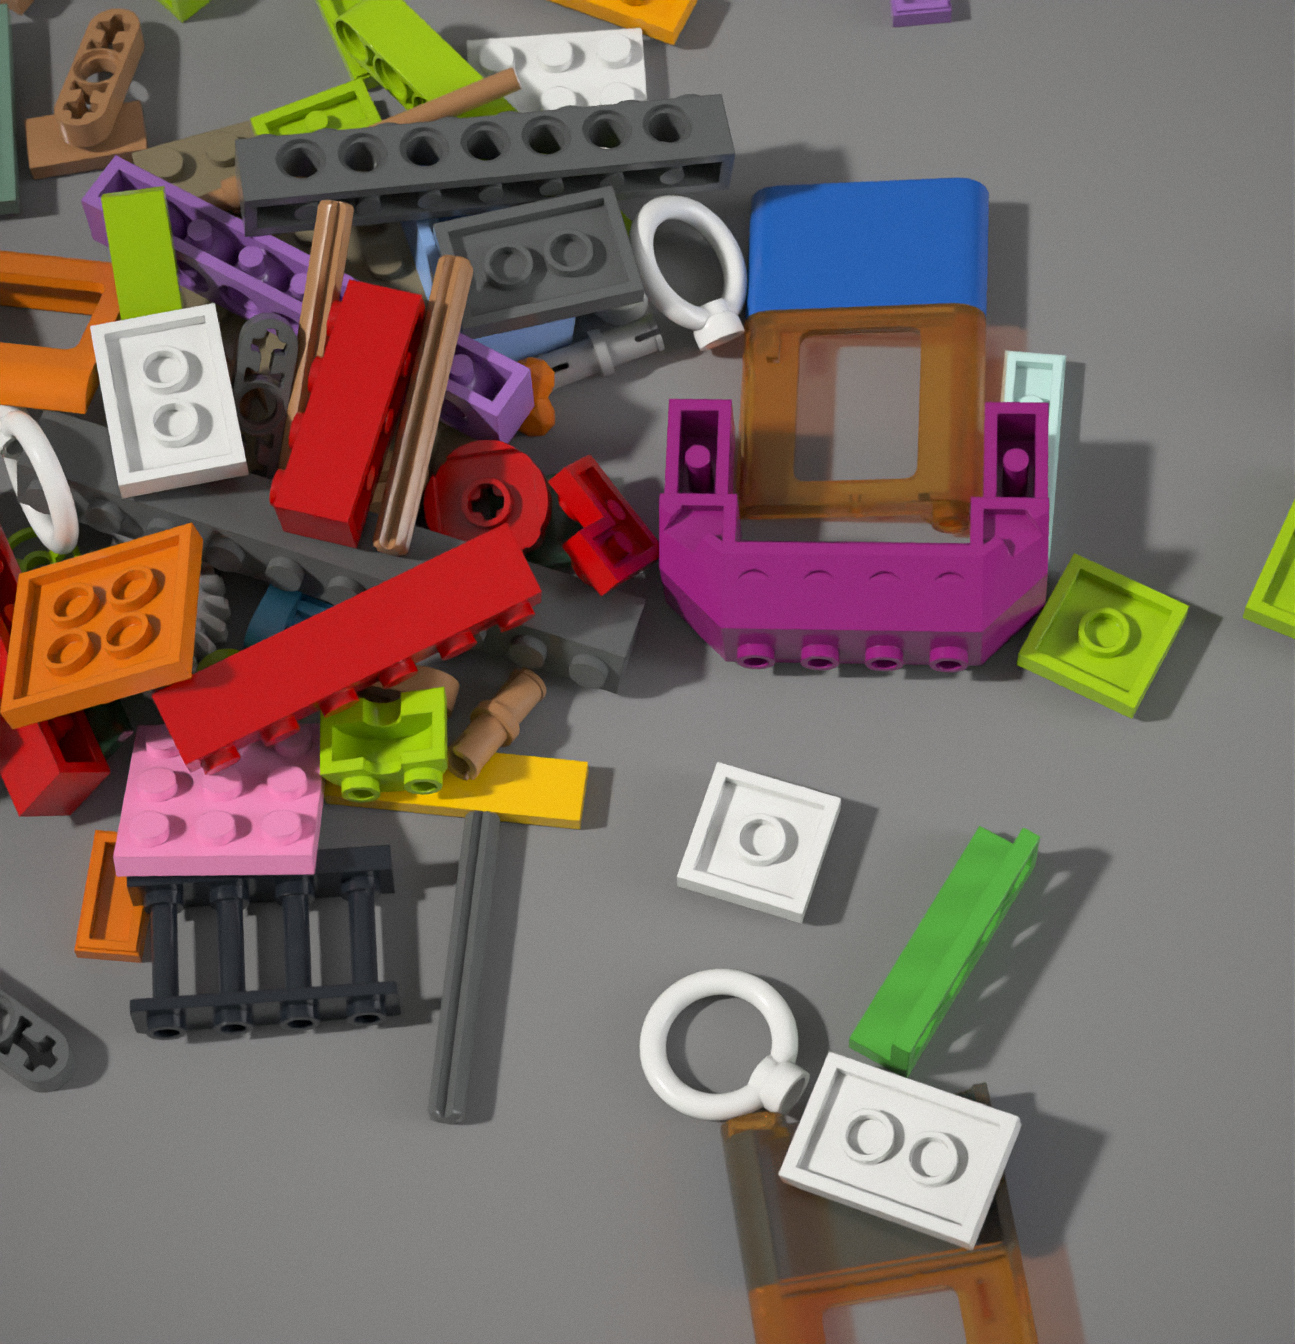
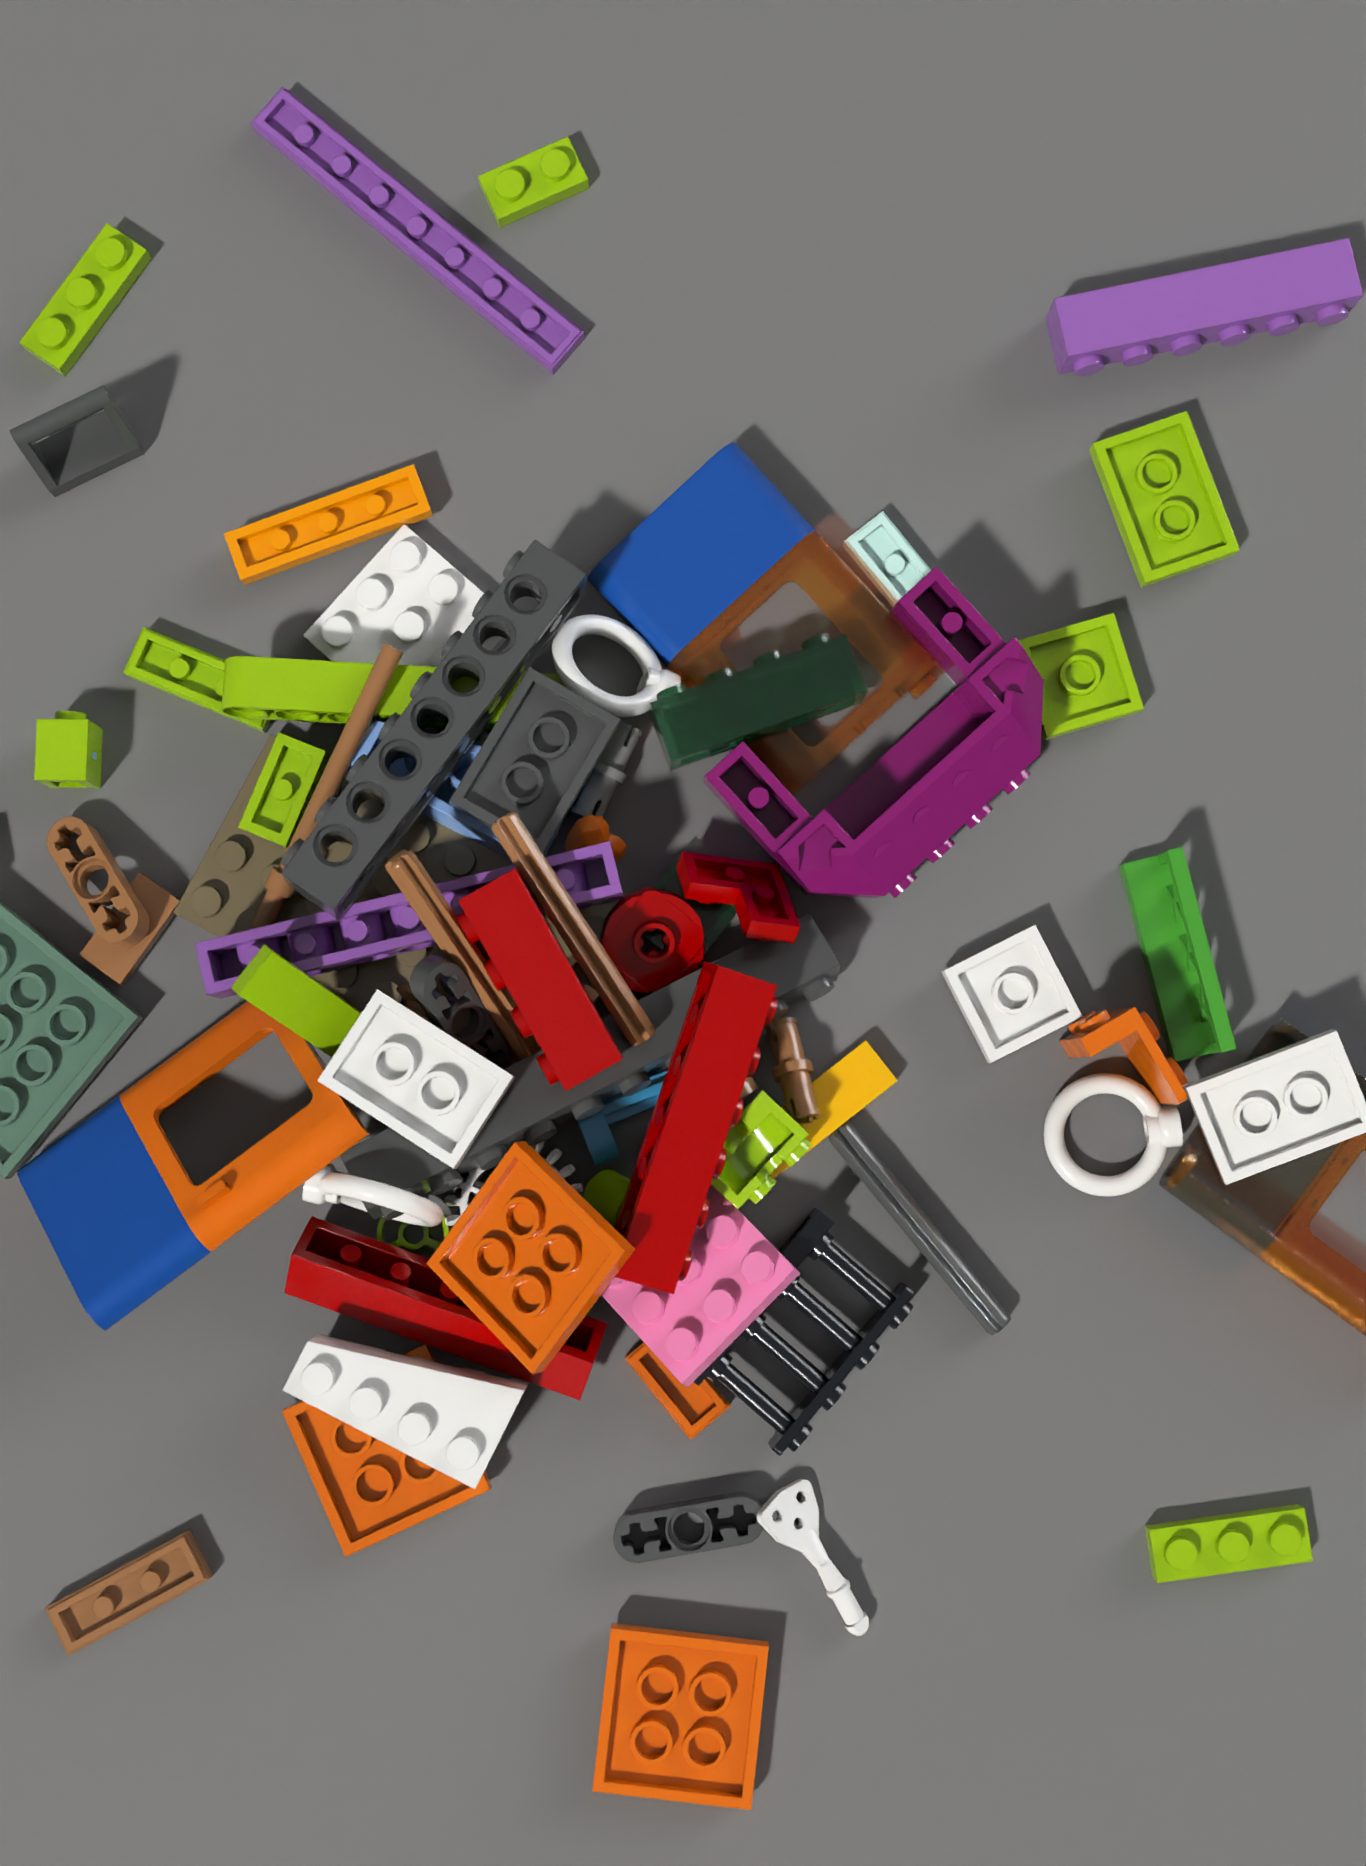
camera: 50 degrees left, 20 degrees up
(75, 1135) = (806, 1540): none -> white piece
(783, 390) = (757, 700): none -> clear green brick
(808, 934) = (1138, 1039): none -> orange bracket

